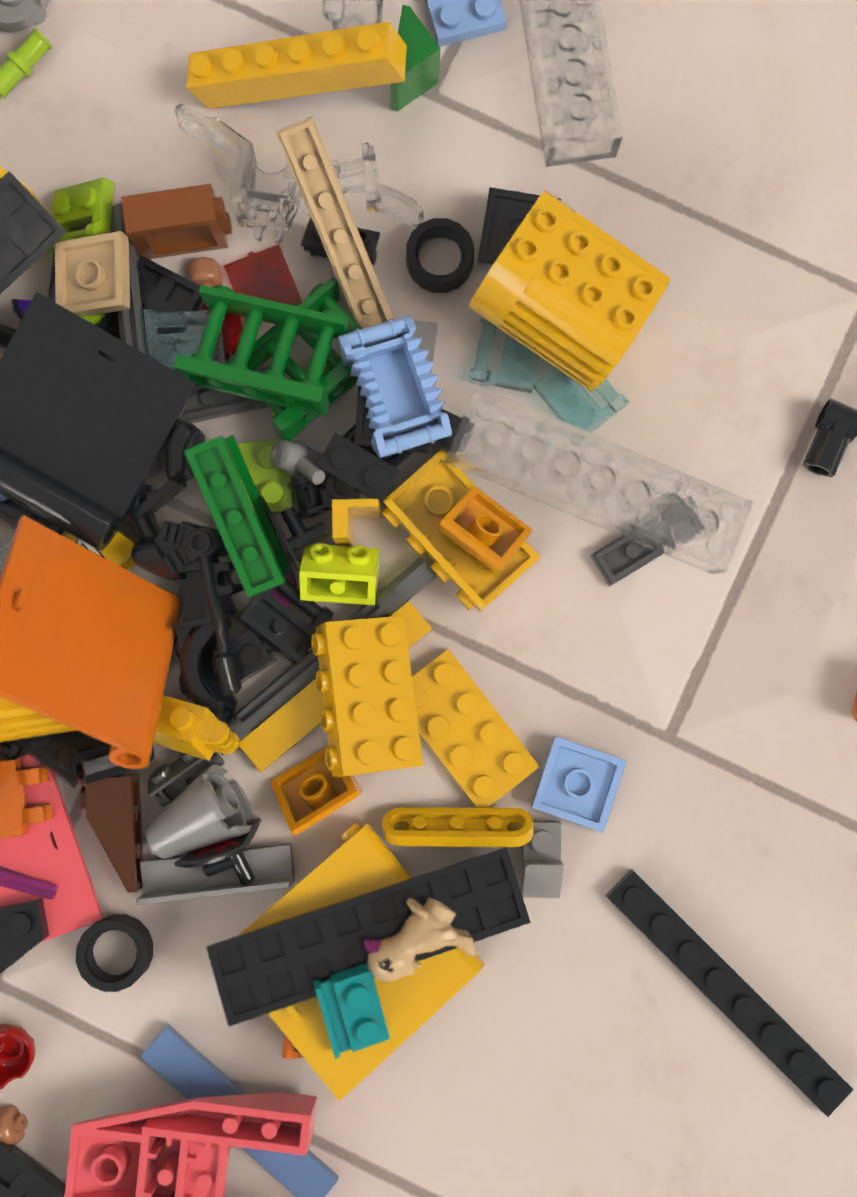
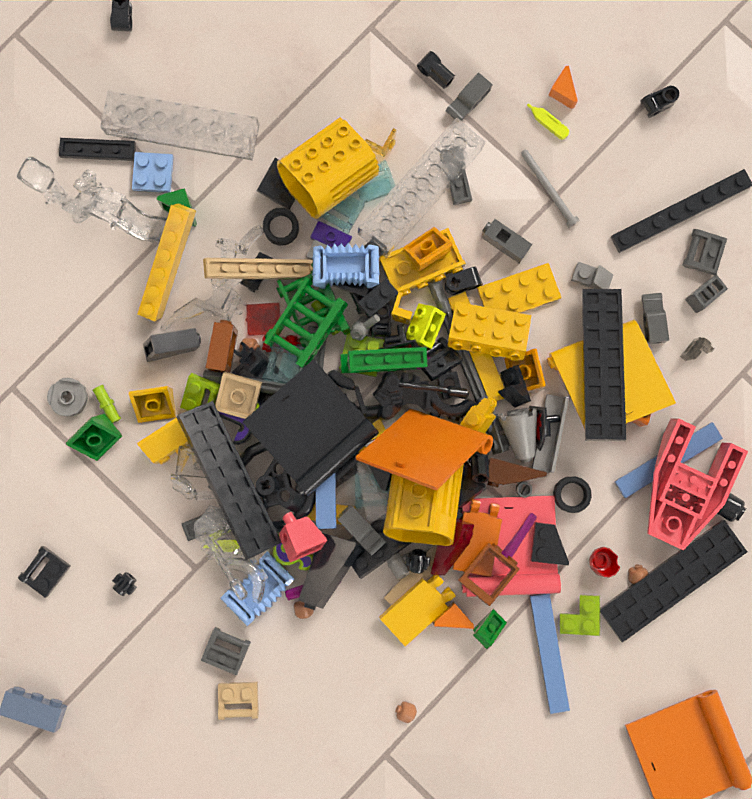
camera: 75 degrees left, 0 degrees up
(44, 141) = (153, 404): none -> yellow slope
(93, 864) = (527, 490): none -> dark grey hinge
(159, 135) = (171, 344): none -> slope
(174, 280) = (250, 358): none -> black plate
(276, 783) = (515, 387): none -> black slope
(351, 1010) = (636, 382): teal plate -> none
(423, 932) = (611, 337): tan animal -> none
(452, 352) = (329, 235): none -> dark purple plate
(456, 624) = (466, 280): none -> black piece
(458, 827) = (565, 310): yellow plate -> none
(464, 1100) = (694, 351): none -> clear smoke bracket
(498, 1005) = (654, 319): none -> dark grey piece
(554, 673) = (506, 240): none -> dark grey brick
(563, 1077) = (698, 302): none -> dark grey slope
(578, 784) = (562, 247): light blue plate -> none
(659, 397) = (389, 144): none -> clear yellow bracket
(663, 1074) = (710, 254): none -> dark grey plate
(681, 724) = (549, 188): none -> light grey bar
(803, 516) = (469, 97): none -> dark grey piece
(810, 683) = (549, 122): none -> neon yellow piece

